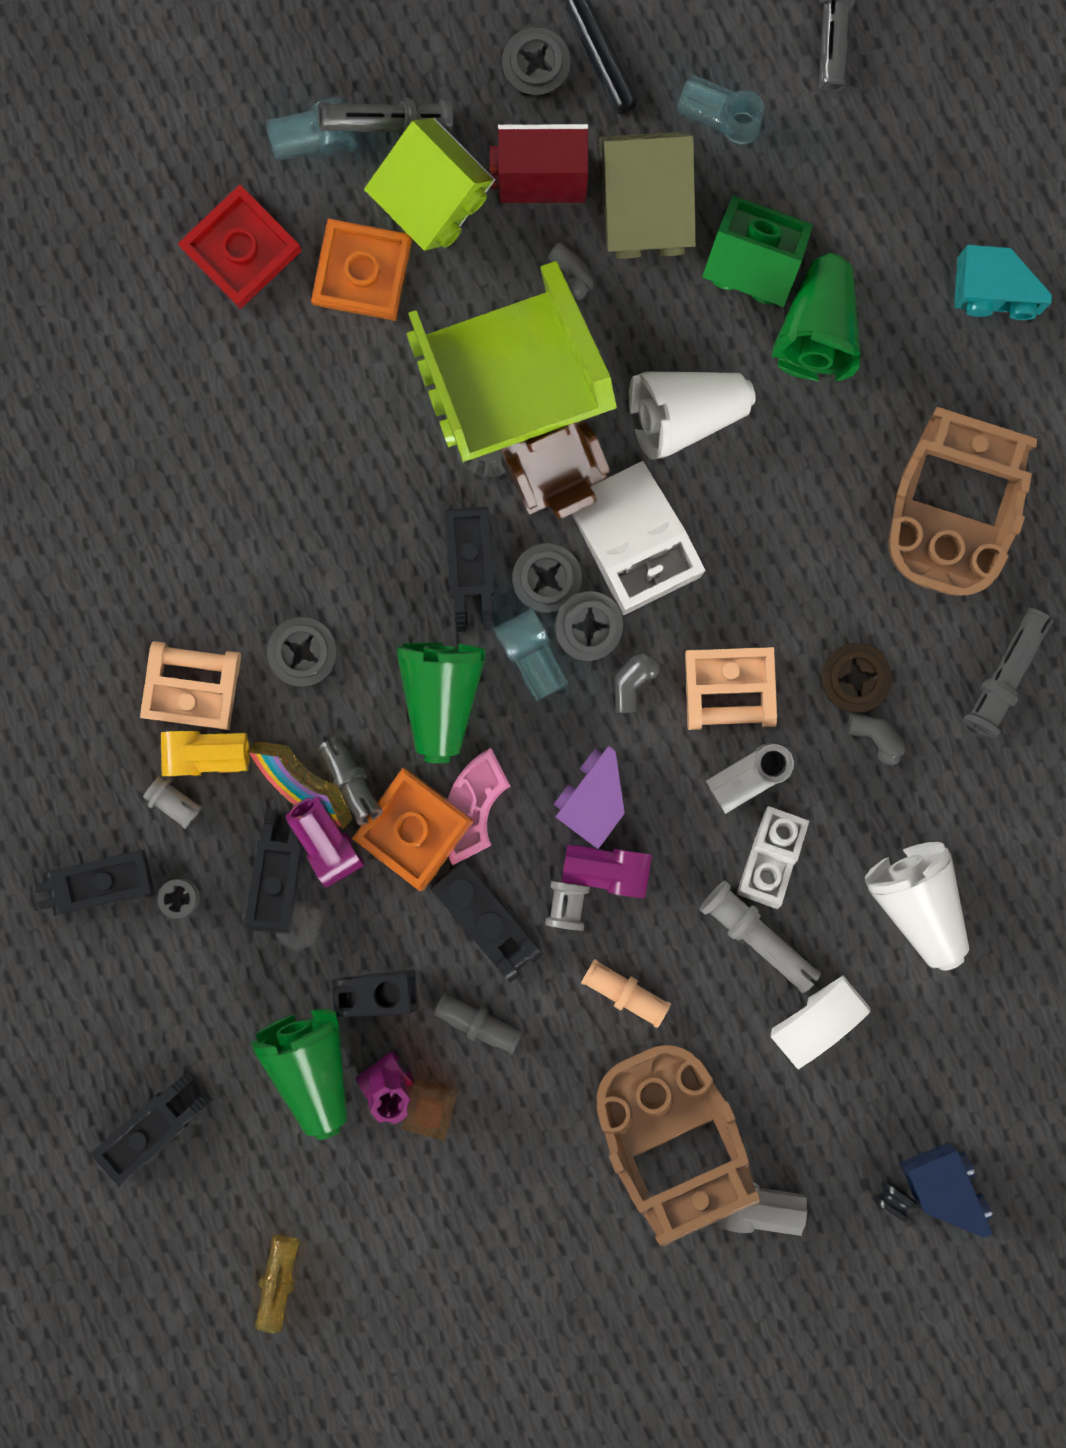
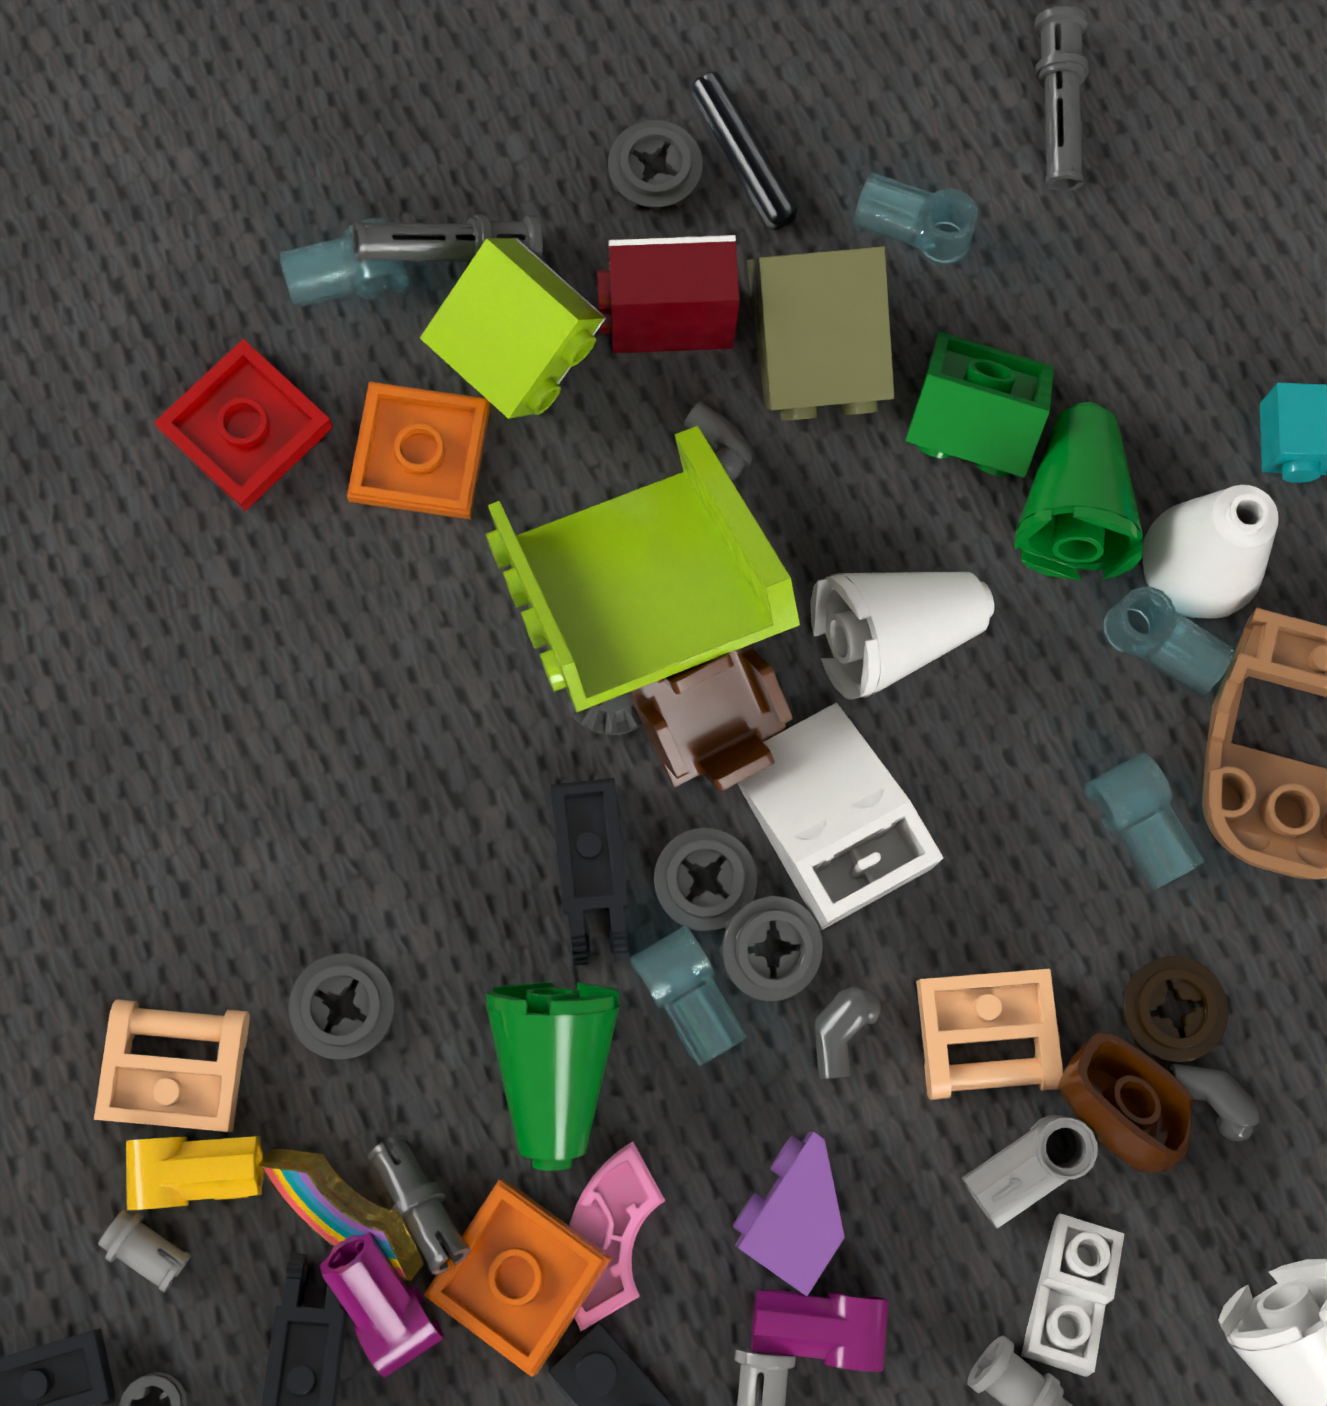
camera: 10 degrees left, 10 degrees down
(818, 737) = (1129, 1103): none -> reddish brown piece
(844, 545) = (1138, 808): none -> clear light blue piece
(879, 428) = (1172, 643): none -> clear light blue piece
(908, 366) = (1211, 551): none -> white cone

